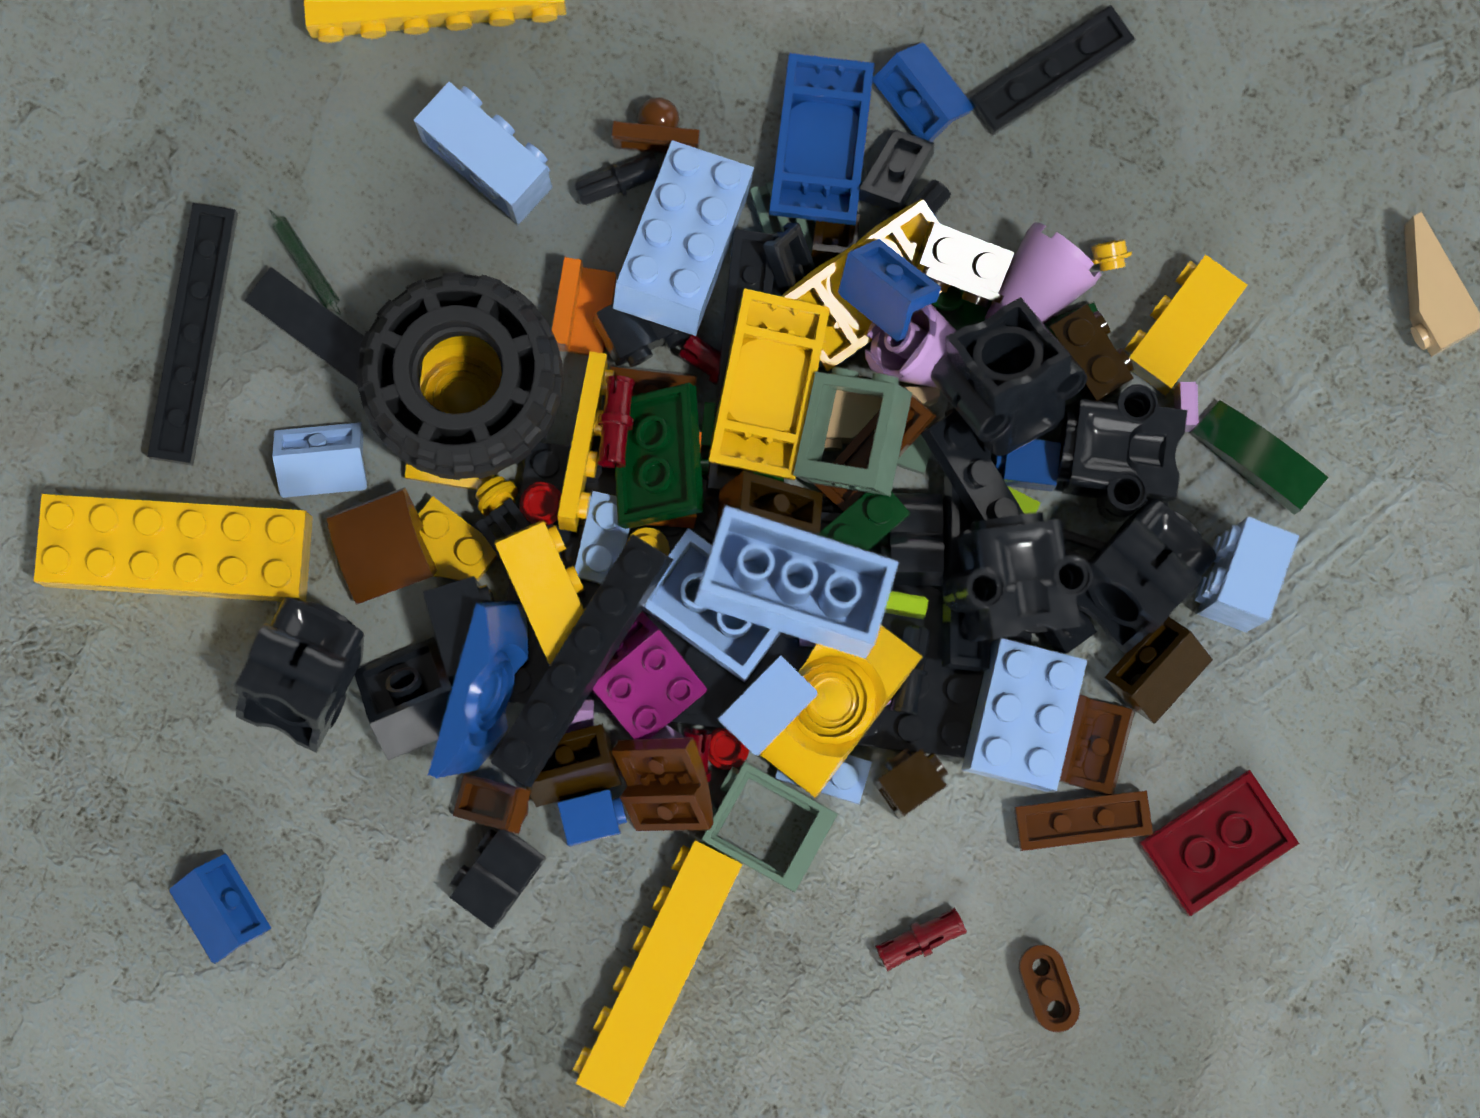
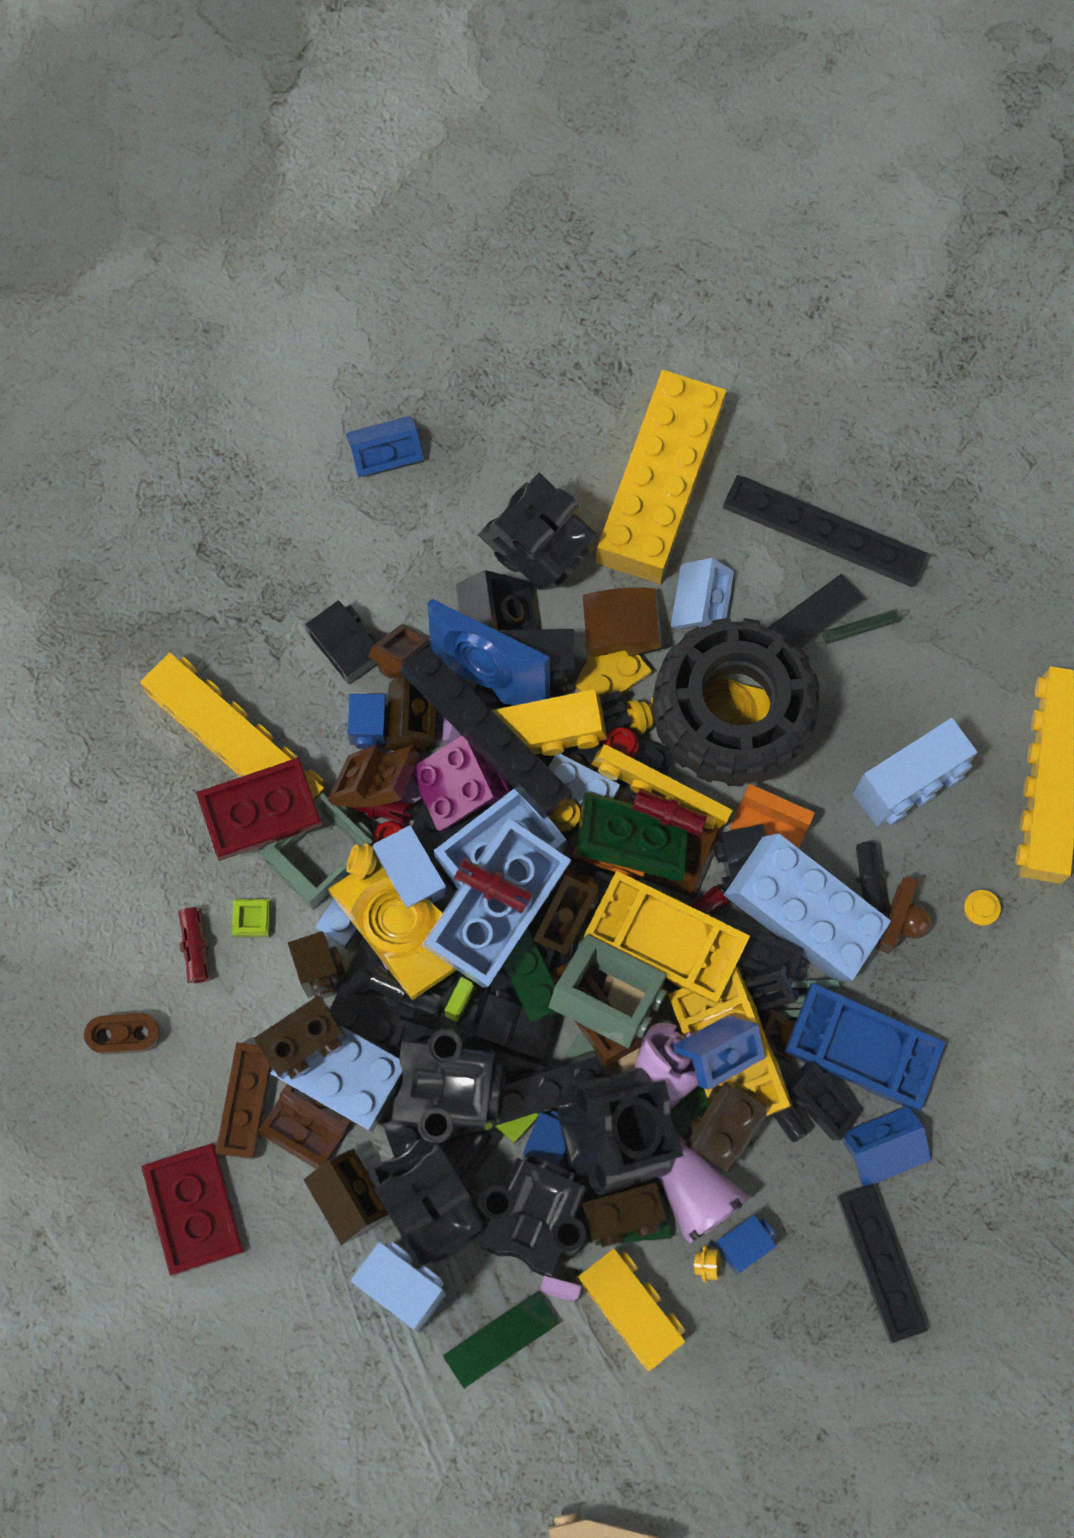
camera: 105 degrees right, 10 degrees down
(618, 46) = (982, 908): none -> yellow plate
(744, 908) = (258, 809): none -> dark red tile
(775, 764) = (361, 861): none -> yellow plate
(787, 584) = (493, 885): none -> dark red pin
(868, 883) = (251, 918): none -> lime tile
(1015, 760) = (301, 1038): none -> dark brown brick
(1077, 216) = (746, 1243): none -> blue brick

